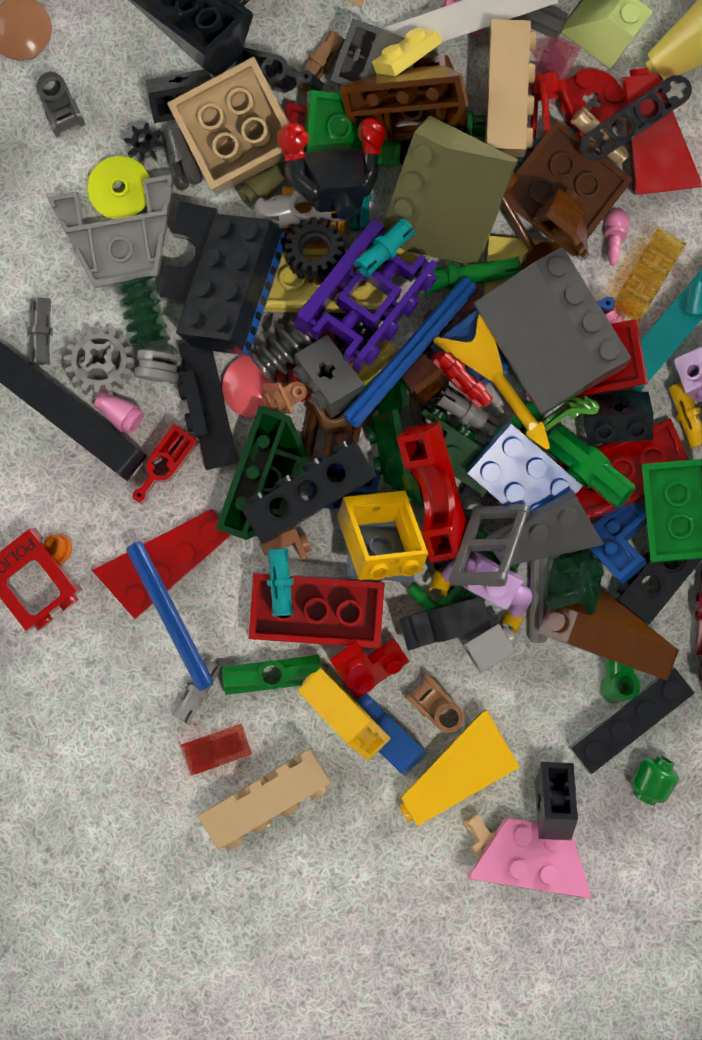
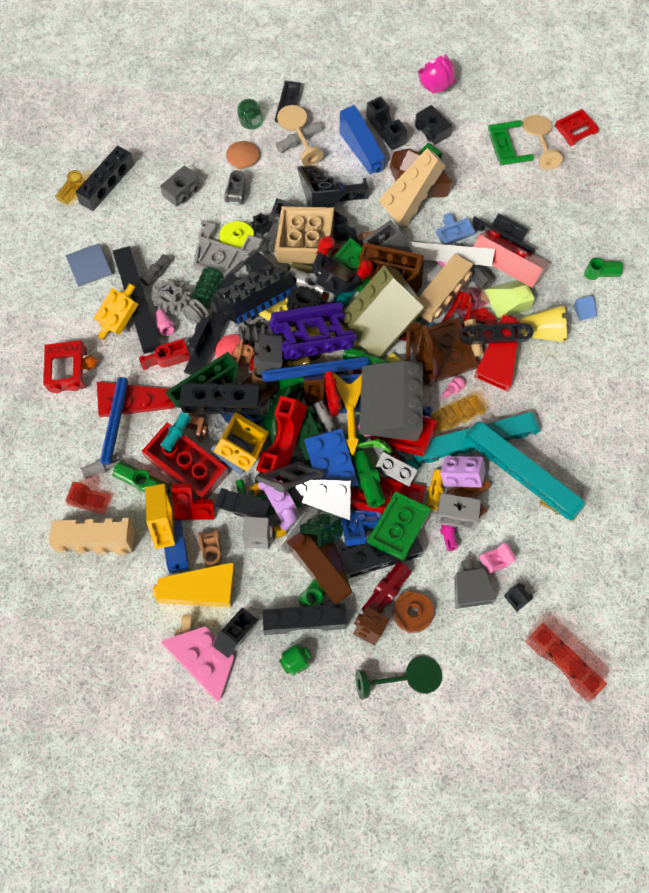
camera: 30 degrees right, 20 degrees down
(39, 444) = (115, 311): none -> yellow plate
(320, 528) = (215, 426): none -> clear cone
(384, 247) = (336, 314): teal pin -> none
(408, 51) = (412, 247): light yellow plate -> none

